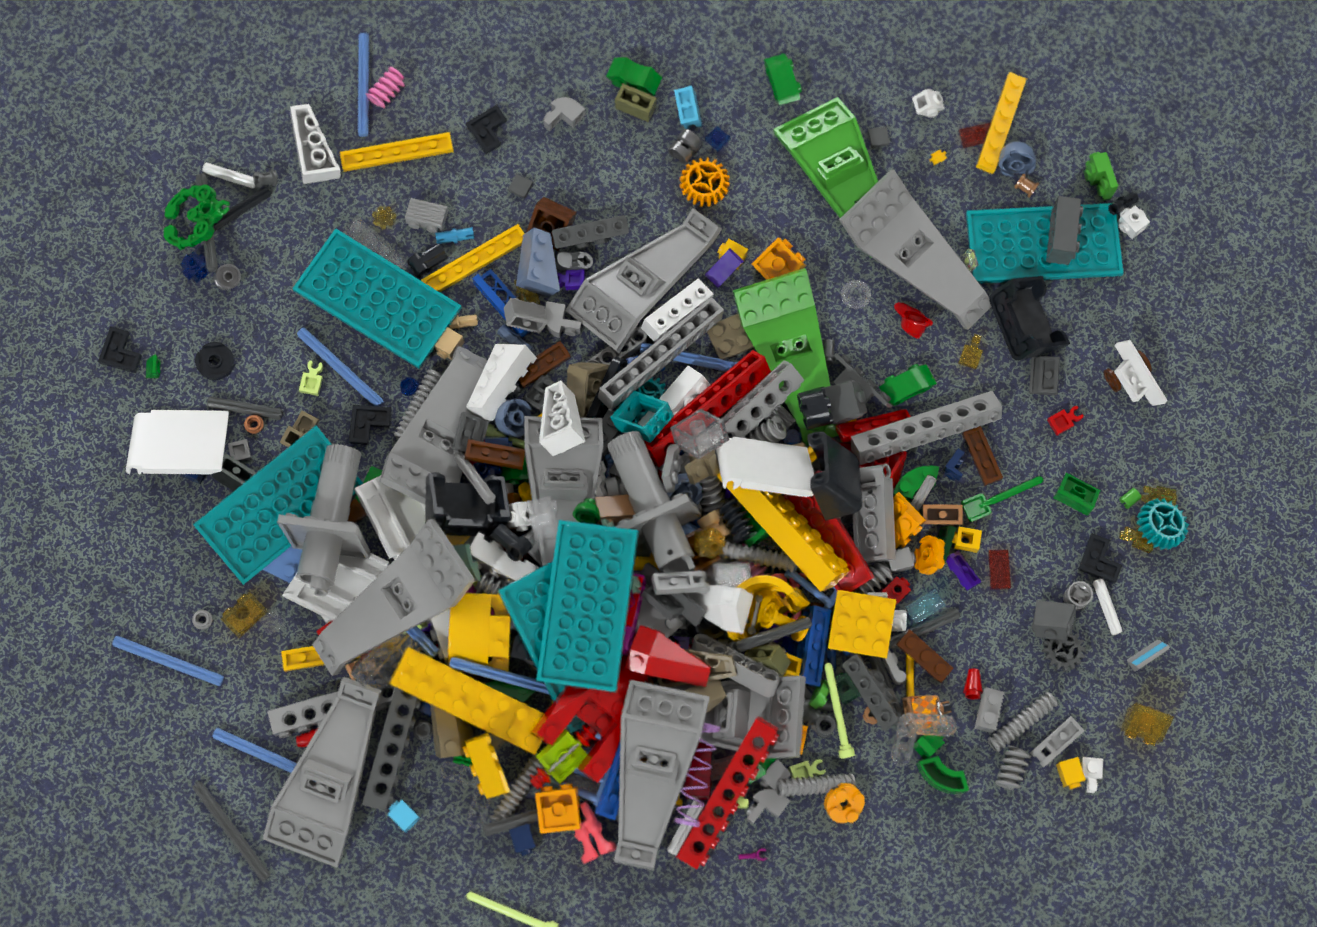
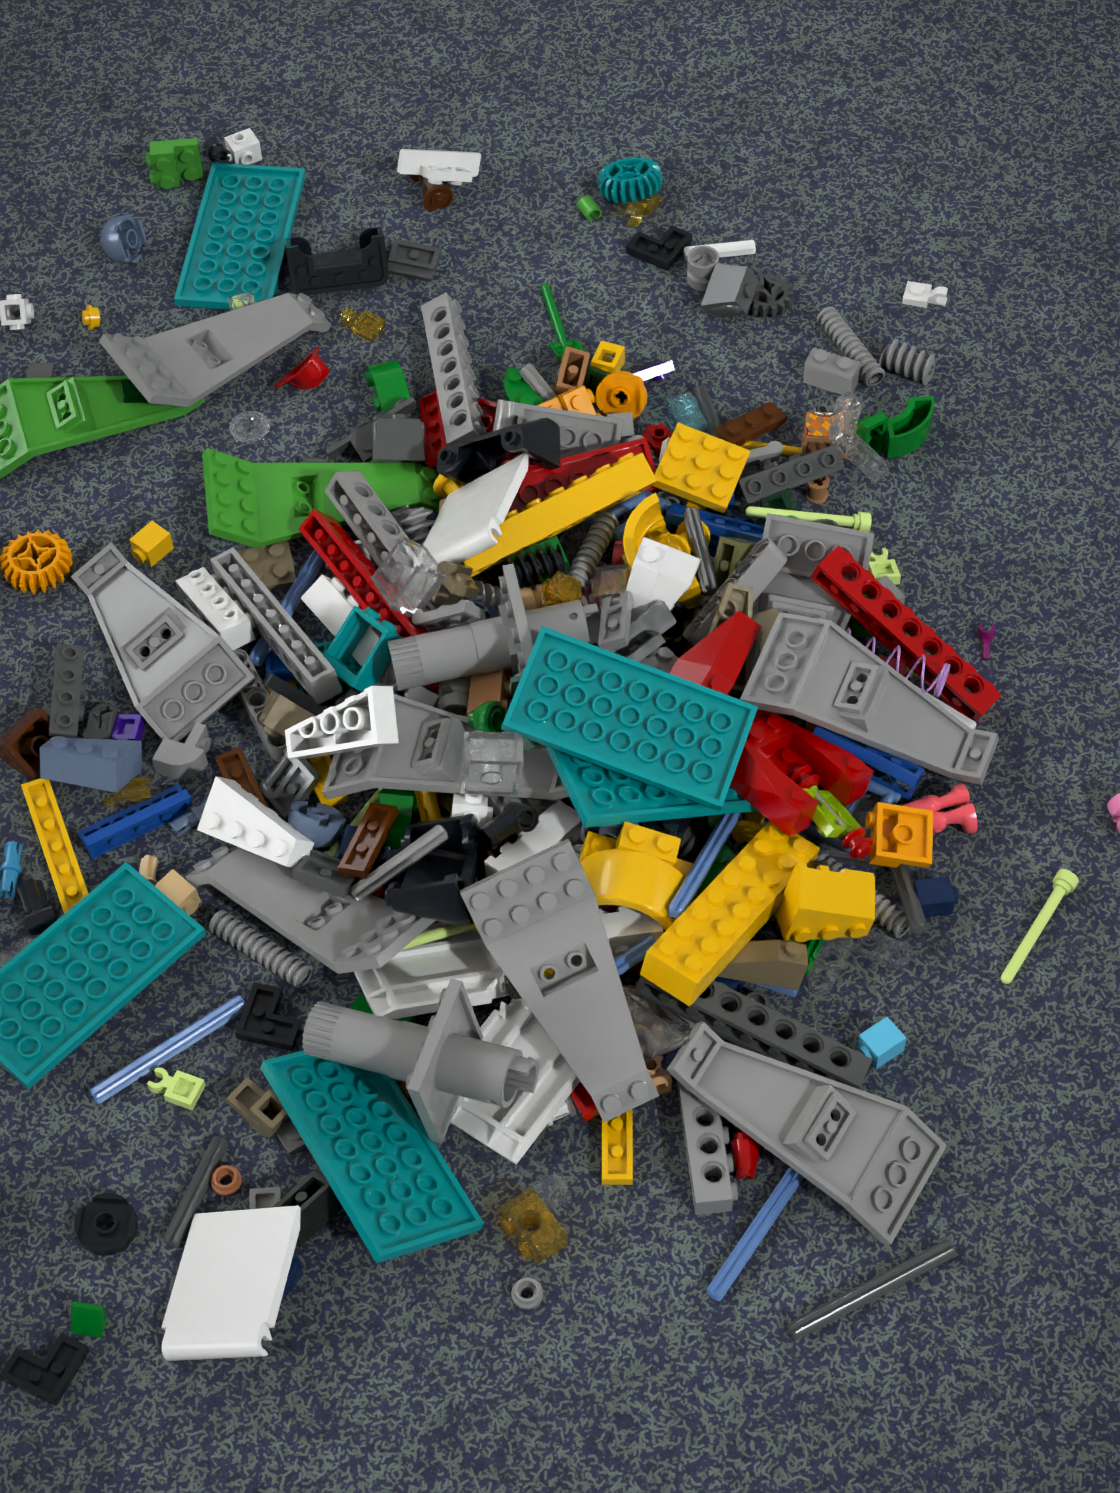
camera: 75 degrees left, 20 degrees down
(168, 660) = (583, 1354): medium blue axle -> none
(285, 565) = (466, 1157): medium blue wing -> none
(409, 386) = (227, 957): clear blue plate -> none
(525, 315) = (167, 782): light grey brick -> none
(724, 268) = (169, 552): dark purple tile -> none
(768, 800) = (925, 605): light grey brick -> none
(779, 260) = (179, 495): light orange plate -> none
(811, 785) = (904, 553): light grey piece -> none
(815, 408) = (400, 468): black brick -> none
(849, 812) = (931, 529): light orange plate -> none
(955, 461) = (502, 358): dark blue bracket -> none
(973, 684) = (795, 385): red cone -> none
(974, 135) = (74, 277): clear red plate -> none
(982, 456) = (502, 334): reddish brown plate -> none
(999, 569) = (652, 340): clear red plate -> none
(1001, 123) = (68, 250): yellow plate -> none
(1026, 185) = (160, 239): medium nougat bush -> none
(1057, 741) = (879, 318): light grey plate -> none
(1062, 421) = (476, 252): red plate -> none
(1064, 230) = (236, 199): dark grey brick -> none
(1071, 773) = (921, 310): yellow brick -> none
(1077, 494) = (575, 254): green slope -> none
(1146, 724) = (872, 229): clear yellow slope -> none
(1147, 654) = (787, 221): light grey slope -> none
(1160, 493) = (590, 180): clear yellow plate -> none

